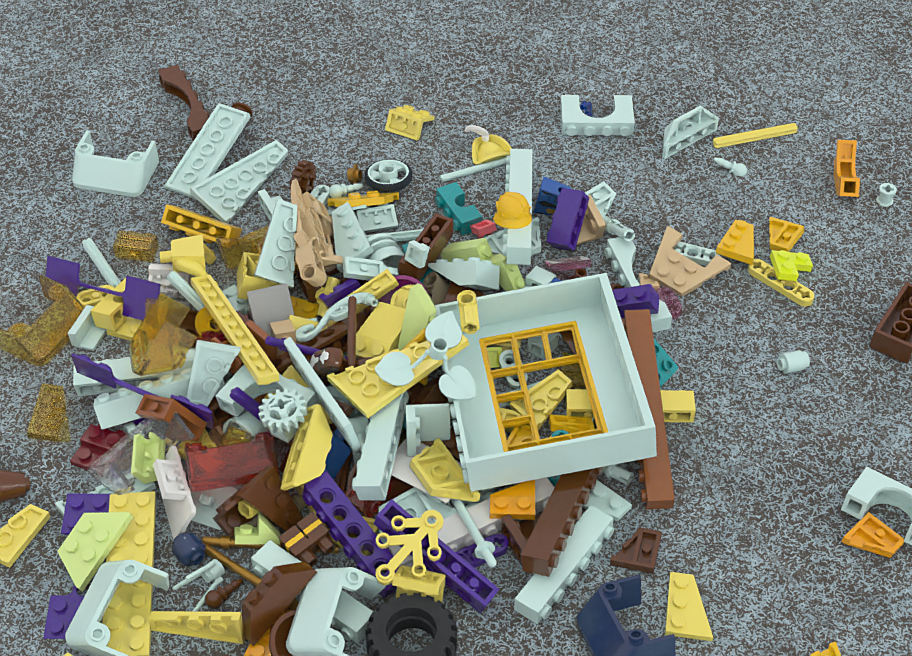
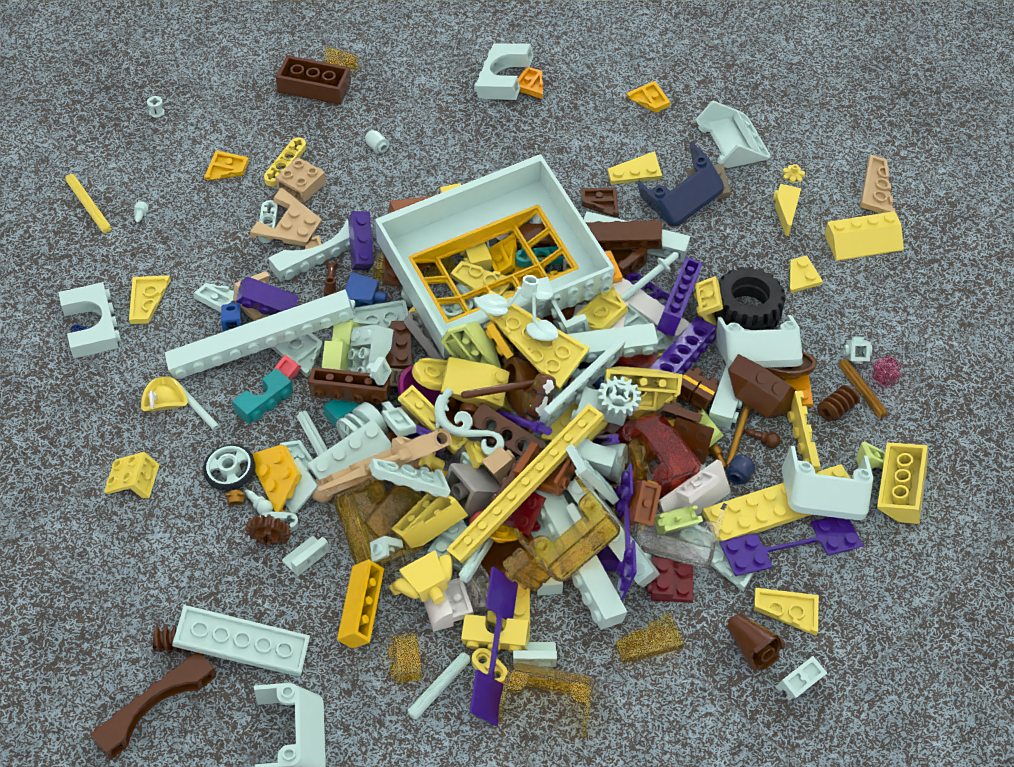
camera: 110 degrees left, 5 degrees up
(91, 543) = (776, 532): yellowish green wing -> none
(209, 572) = (751, 450): light aqua plant -> none
(234, 186) = (280, 601): light aqua wing -> none
(245, 243) = (384, 547): none -> light aqua bracket
(411, 543) = (691, 297): light yellow plant -> none
(468, 312) = (454, 301): light yellow piece -> none
(512, 211) = (298, 312): yellow helmet -> none
(568, 263) = (315, 288): clear pink tile -> none
(613, 154) = (146, 297): none -> light yellow wing
(614, 227) = (267, 261): light aqua pin -> none
(672, 301) = (333, 226): clear pink beam -> none
(688, 130) = (103, 248): light aqua wedge -> none
(738, 242) = (247, 191): yellow wing -> none
(744, 285) = (301, 179): none -> tan brick
(788, 263) = (262, 158): neon yellow plate -> none
(844, 169) = (134, 135): light orange arch -> none

